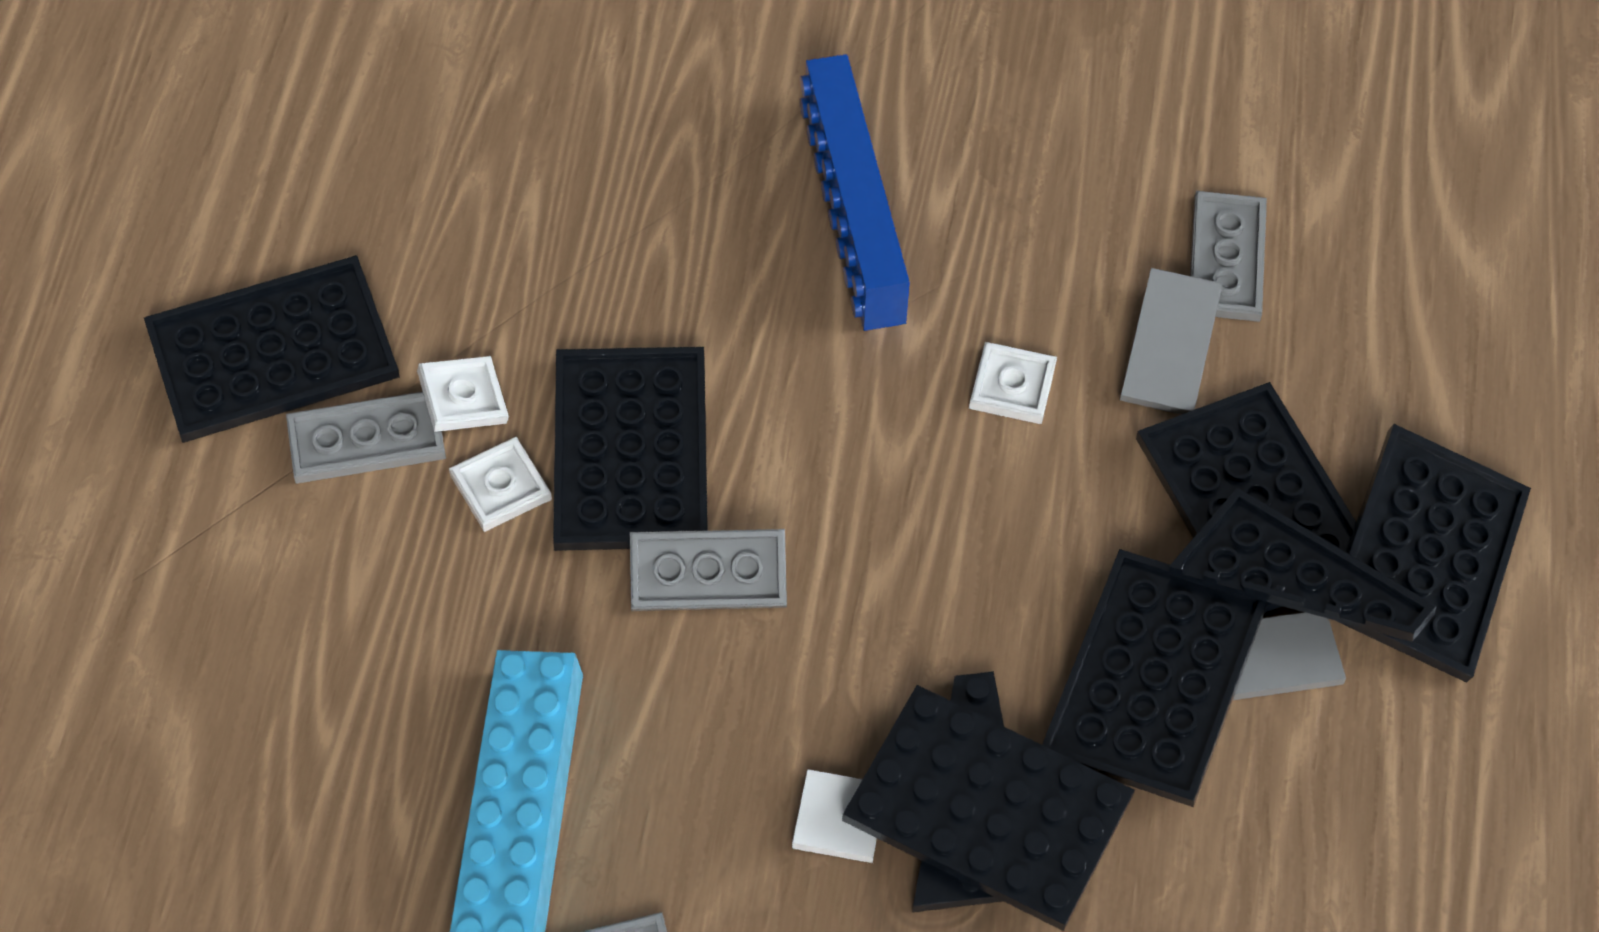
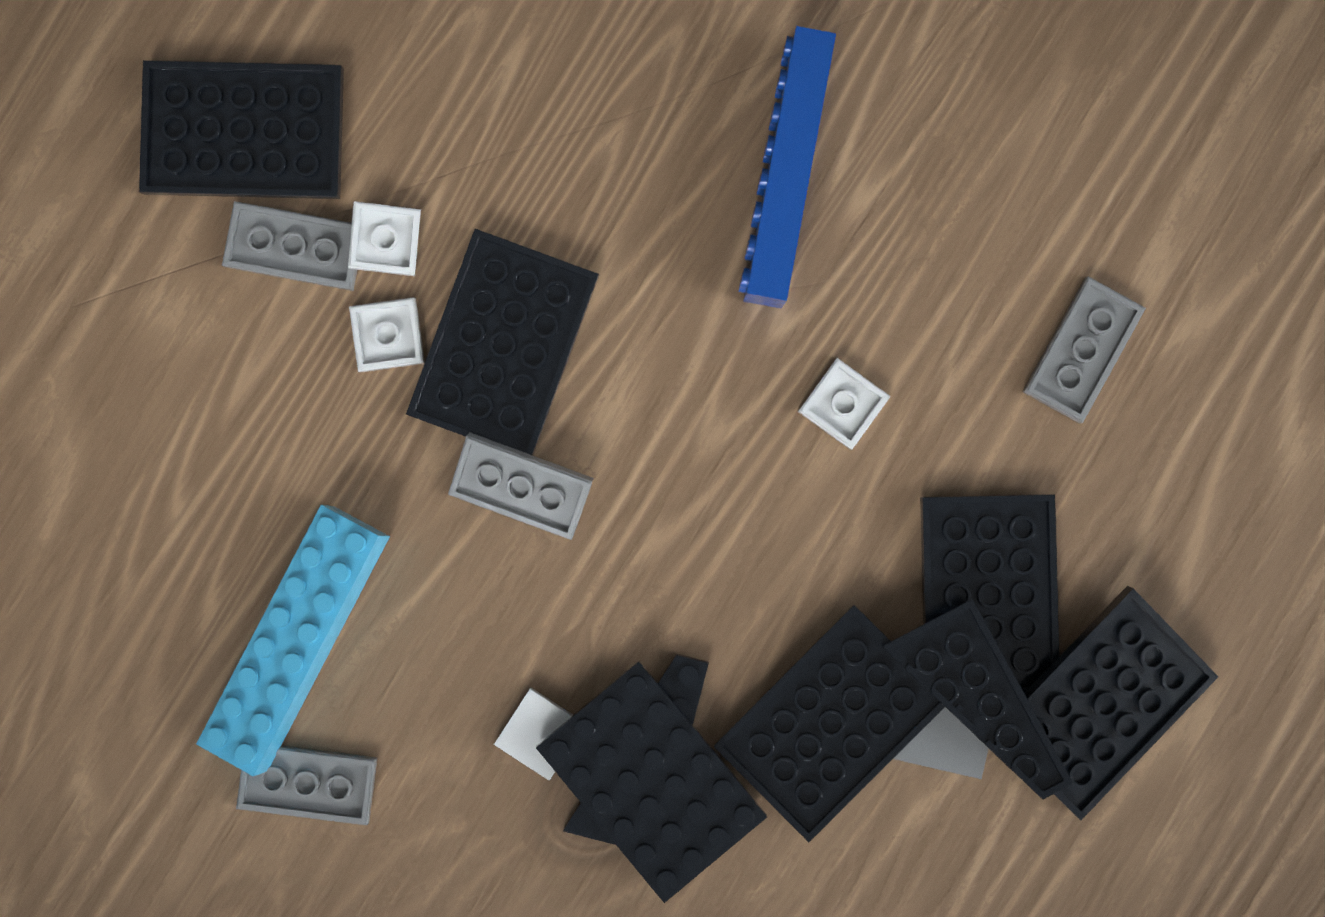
camera: 20 degrees right, 30 degrees up
(1171, 342) = (993, 420): light grey tile -> none

